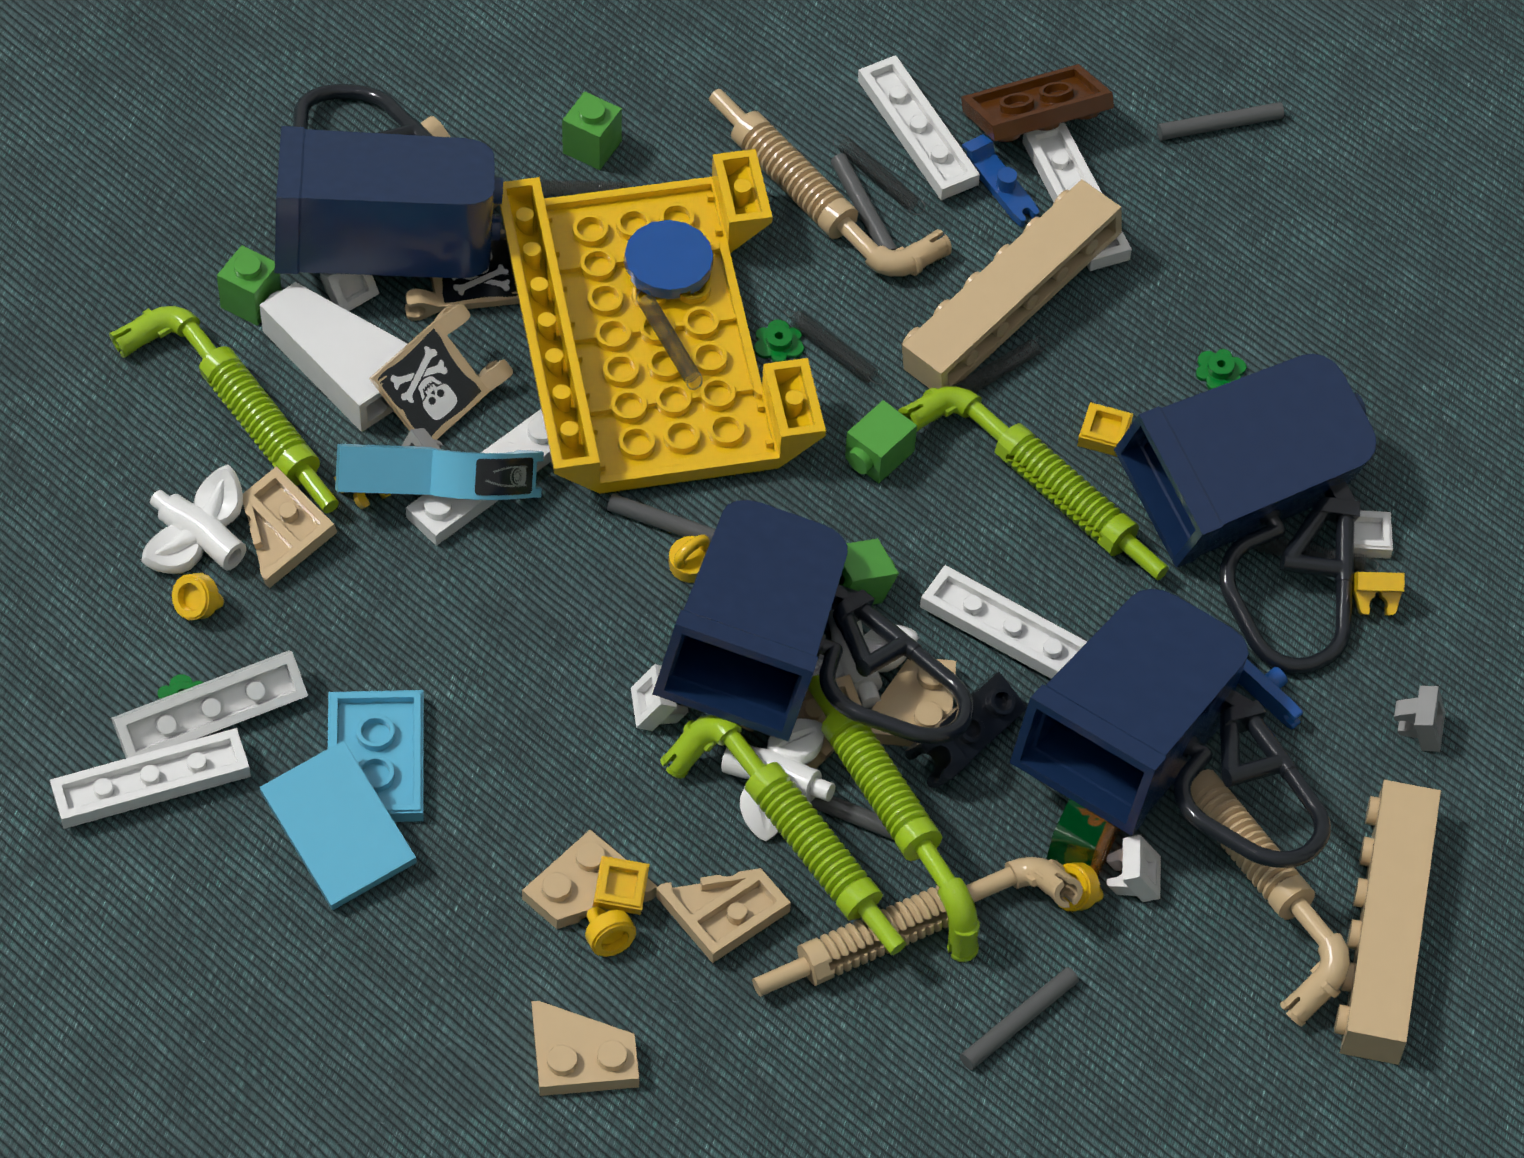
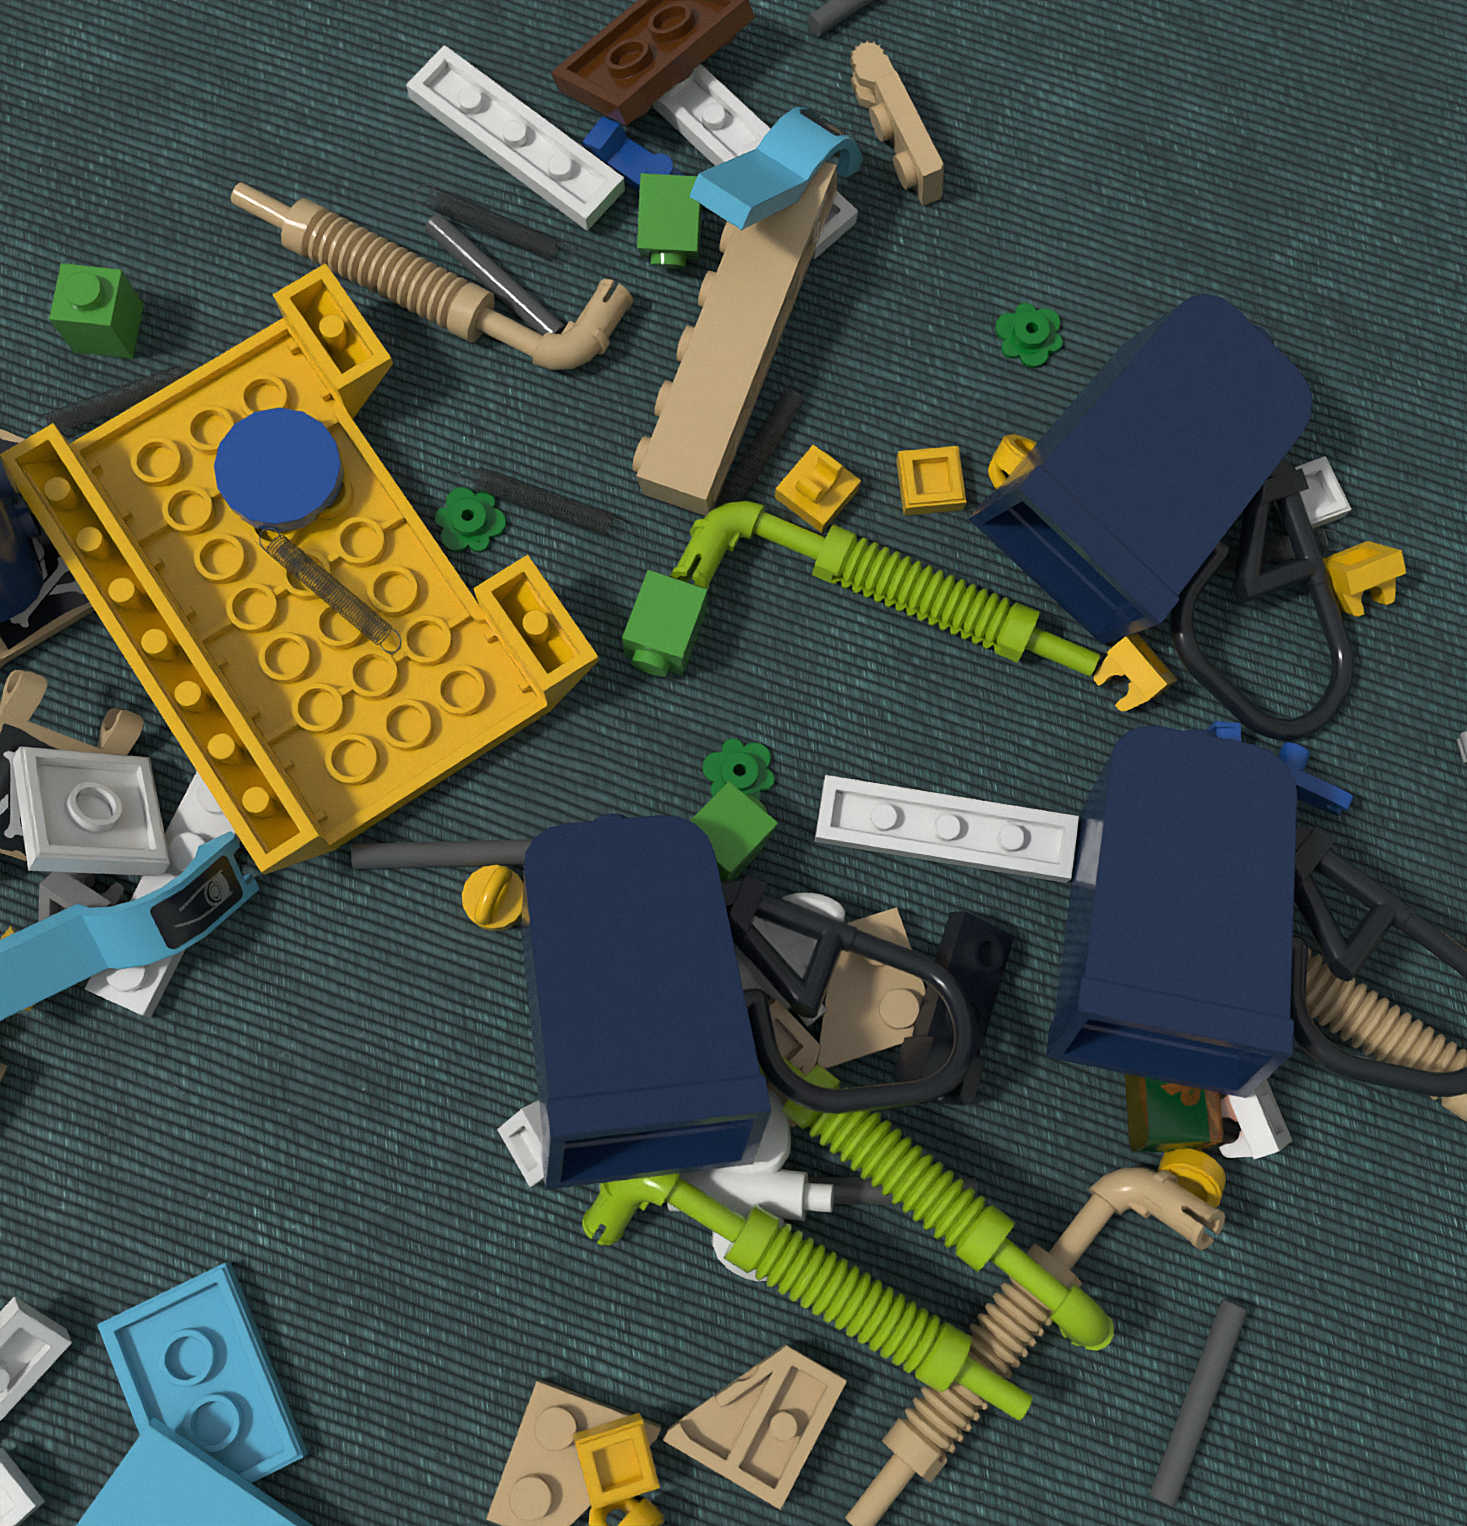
camera: 25 degrees left, 20 degrees up
(461, 401) = (89, 812): none -> white tile
(898, 548) = (752, 758): none -> green plant
(999, 208) = (668, 220): none -> bright green brick
(1024, 404) = (817, 488): none -> yellow tile
(1081, 193) = (777, 170): none -> medium azure piece
(1186, 206) = (896, 119): none -> tan hinge
(1191, 581) = (1143, 668): none -> yellow tile

